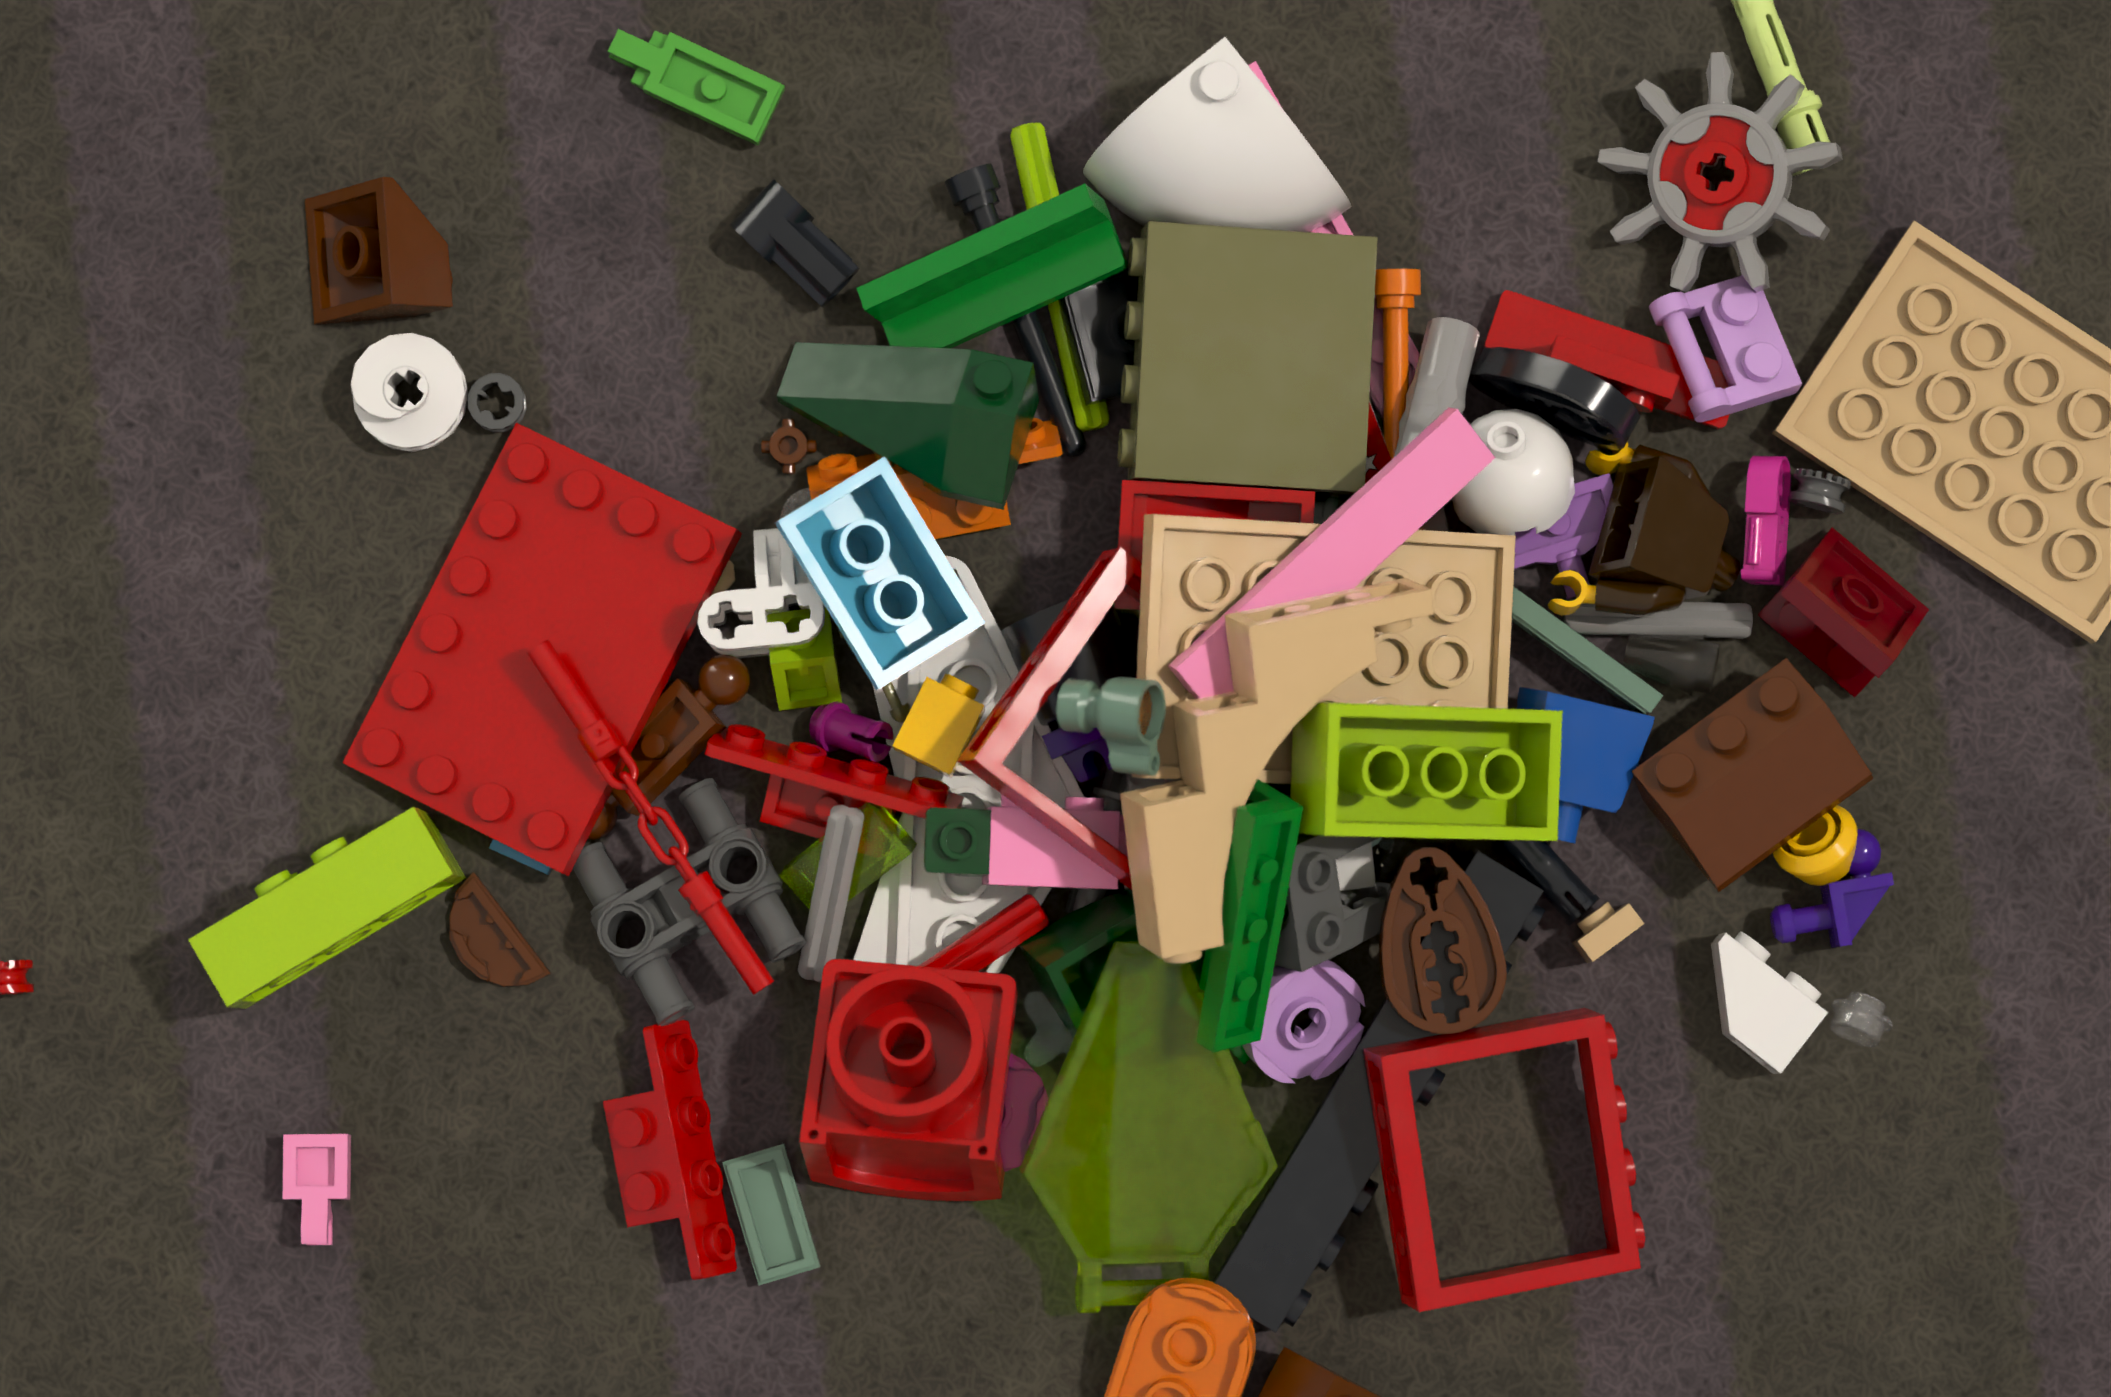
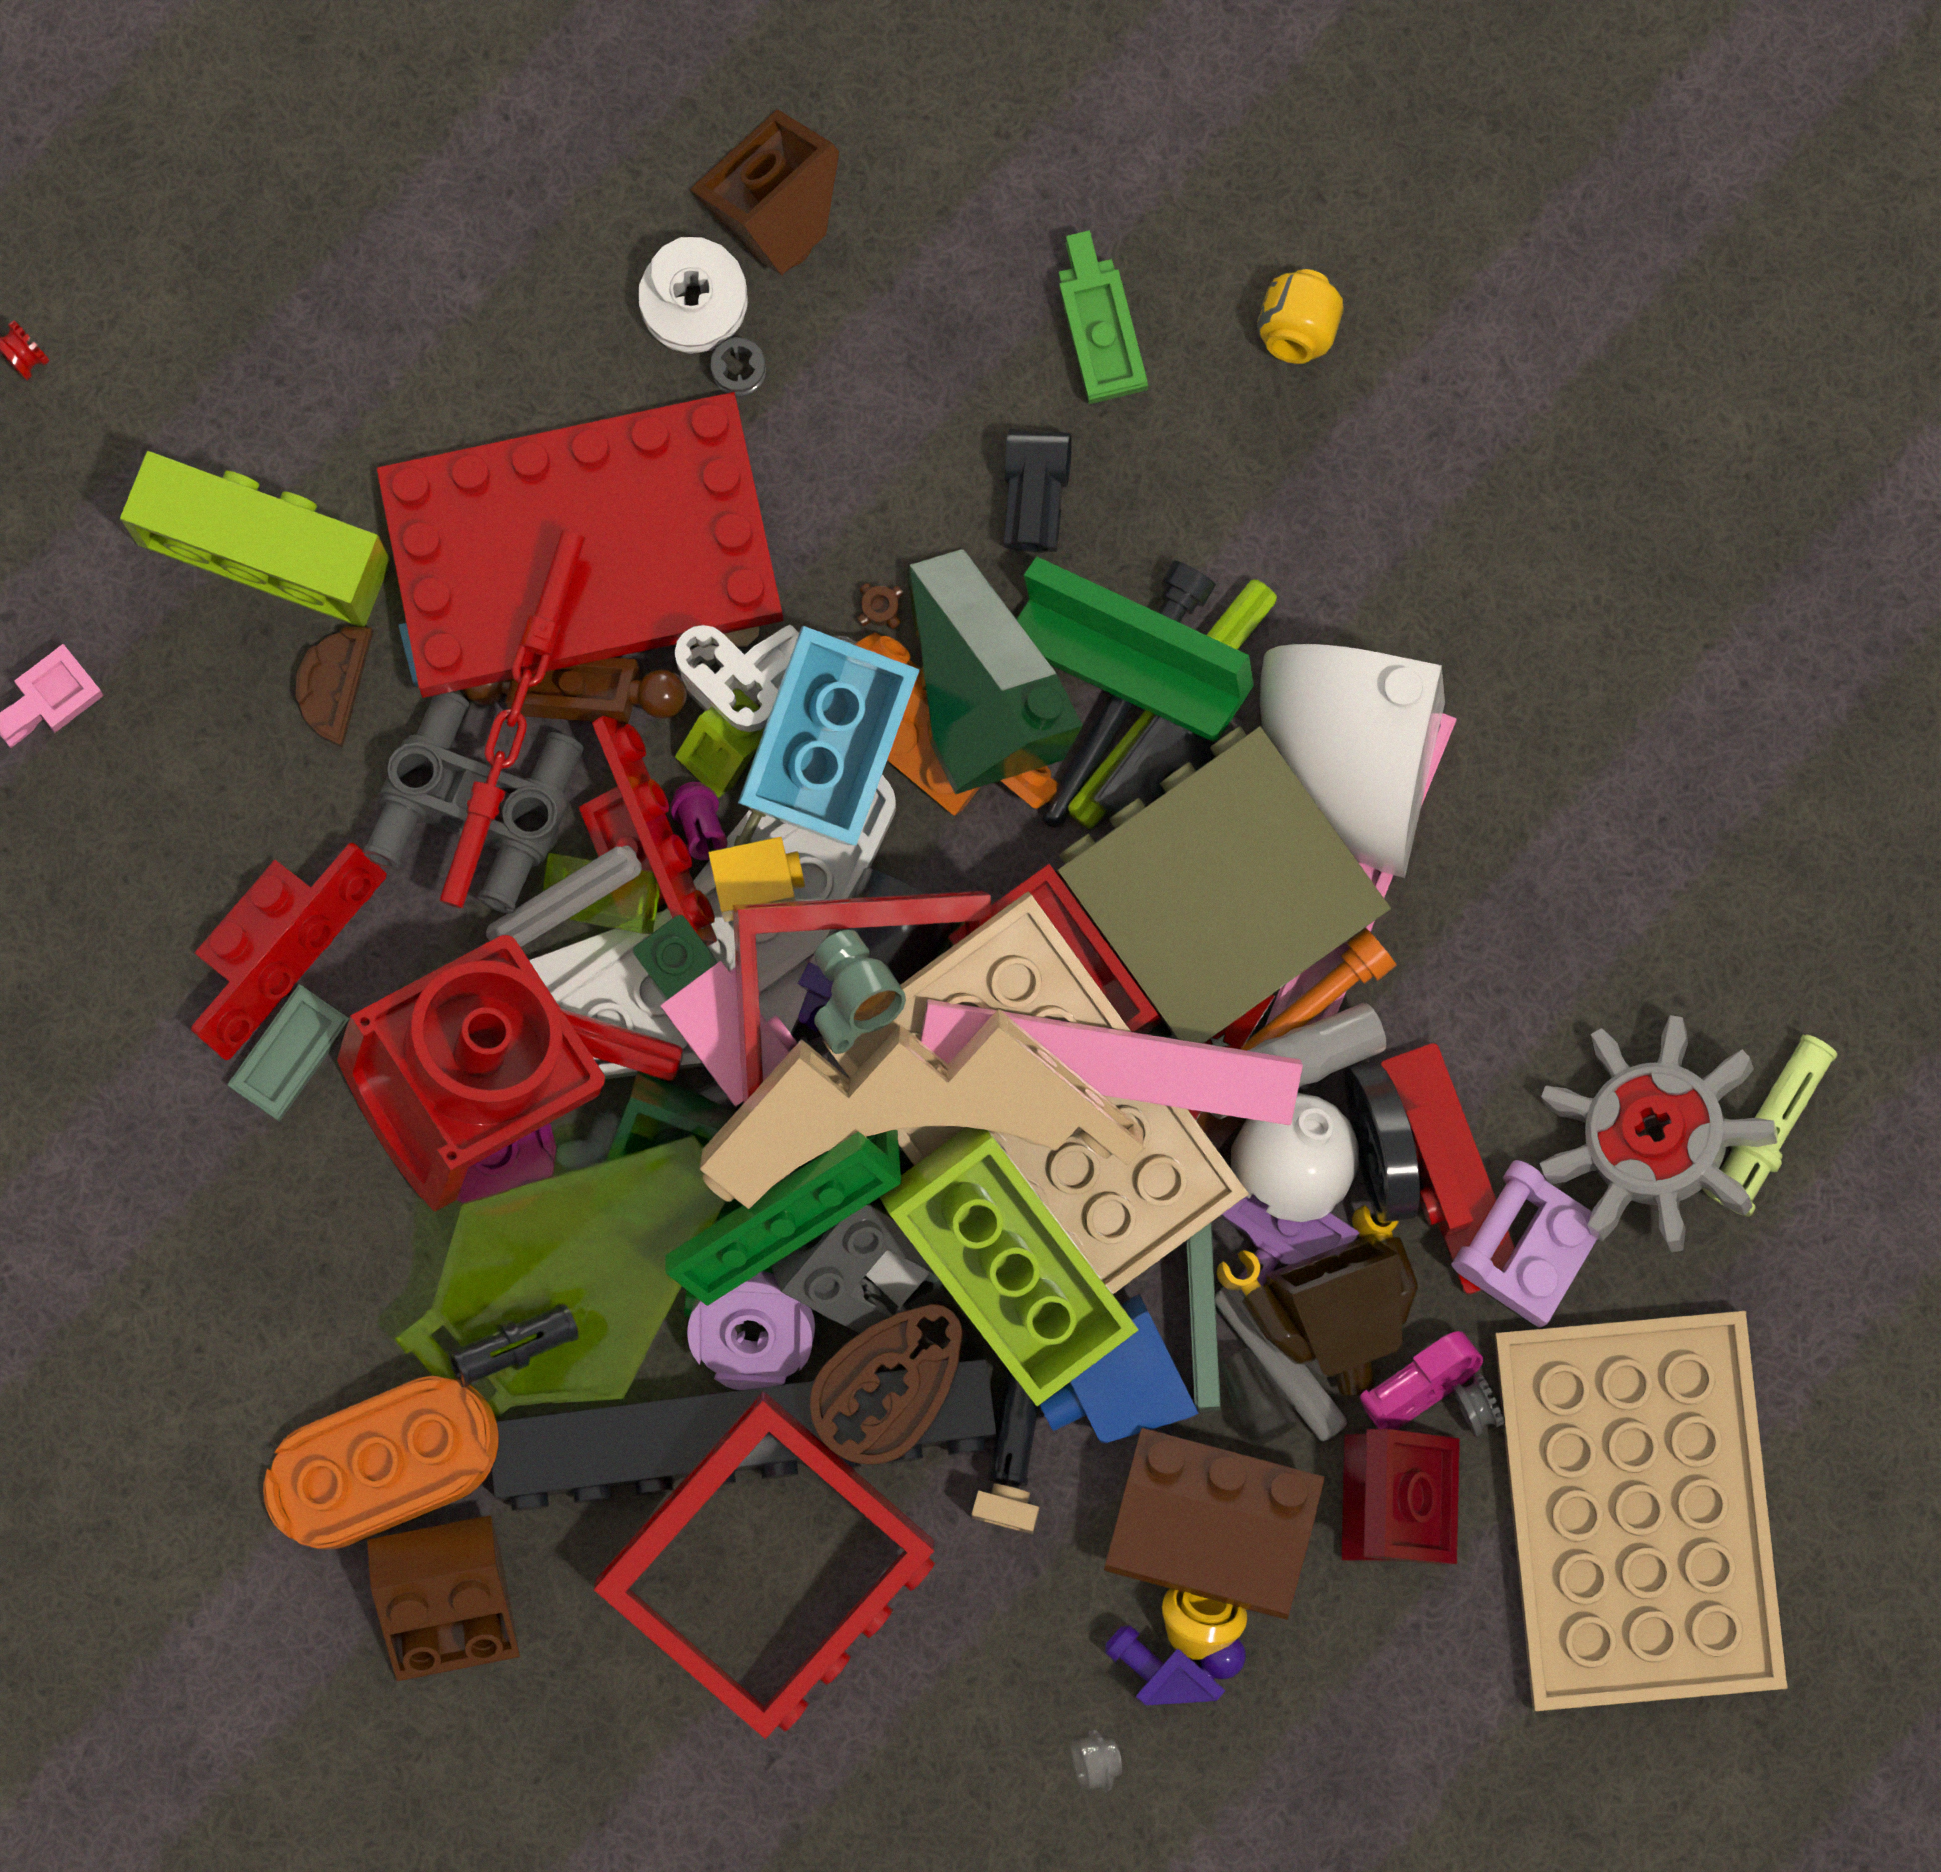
camera: 55 degrees right, 5 degrees down
(1163, 1221) = (474, 1359): none -> black pin
(1759, 1007) = (1041, 1674): white slope -> none

